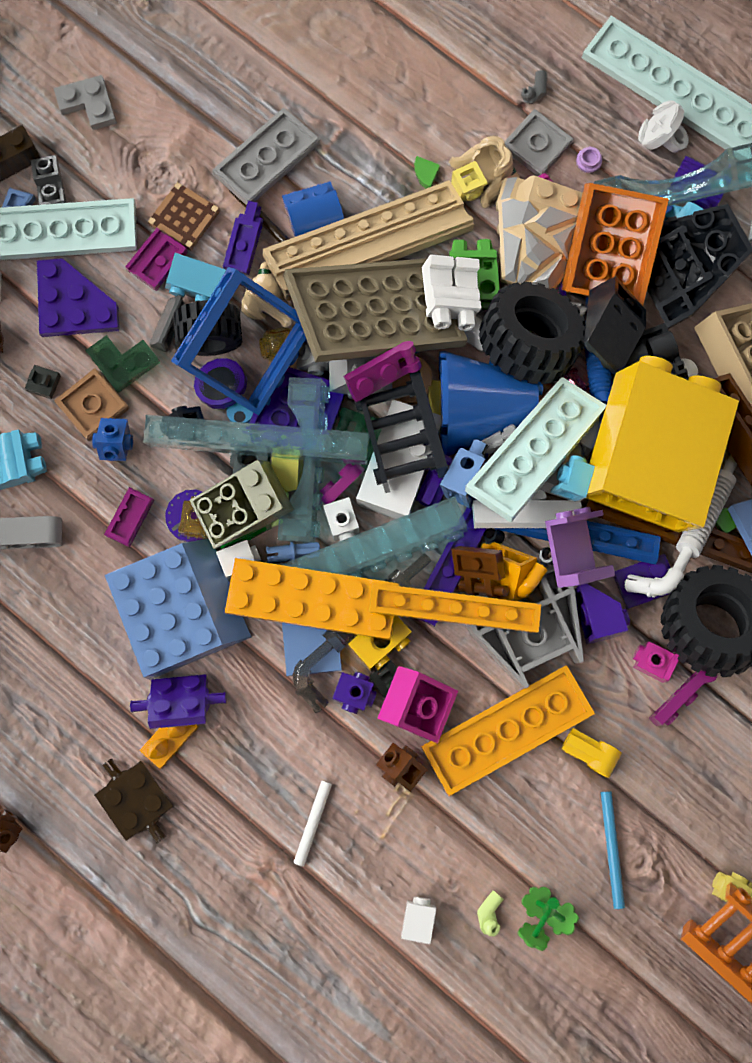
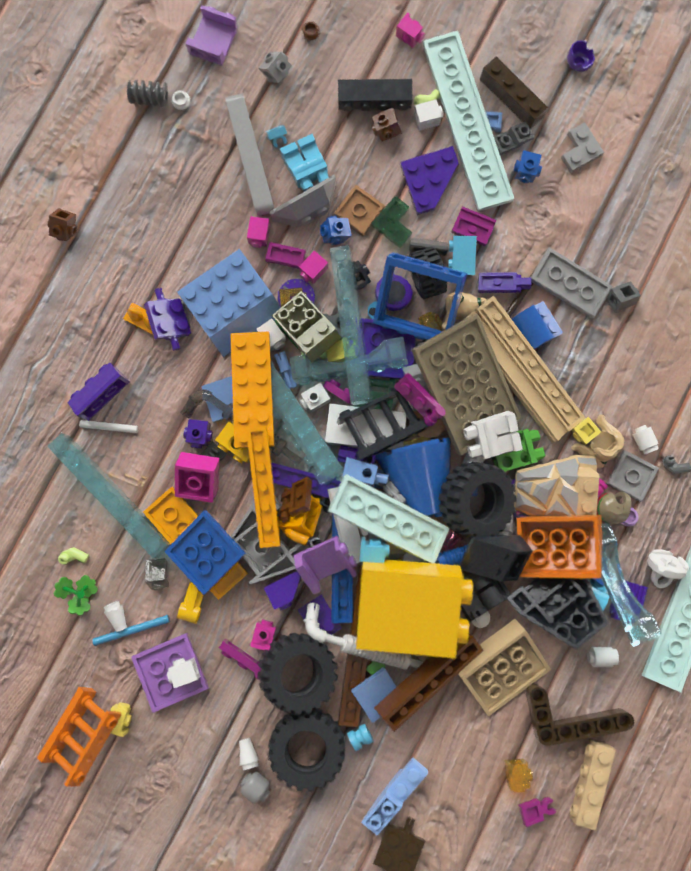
camera: 75 degrees right, 5 degrees up
(42, 382) = (367, 173): pearl dark grey tile -> none
(66, 472) = (307, 205): none -> light grey wedge
(85, 546) = (258, 231): none -> dark pink brick
(95, 171) = (527, 167): none -> blue brick
(133, 801) = (99, 307): dark brown plate -> none
(158, 481) = (313, 267): none -> dark pink brick
(184, 216) = (511, 237): tile -> none
(257, 826) = (97, 392): none -> dark purple slope
(302, 97) = (623, 296): none -> dark grey brick
(401, 767) = (155, 472): reddish brown brick -> none
(414, 840) = (109, 495): none -> clear light blue brick
(418, 920) = (58, 509): white brick -> none
(426, 171) = (588, 399): bright green tile -> none
(495, 114) = (645, 439): none -> white brick
(527, 713) = (205, 552): none -> blue plate
(540, 794) = (156, 574): none -> clear smoke bracket
(577, 173) = (611, 510): none -> dark tan helmet
(588, 866) = (115, 615): none -> white cone
(682, 805) = (153, 668): none -> medium lavender plate
(688, 781) = (183, 672): none -> white brick

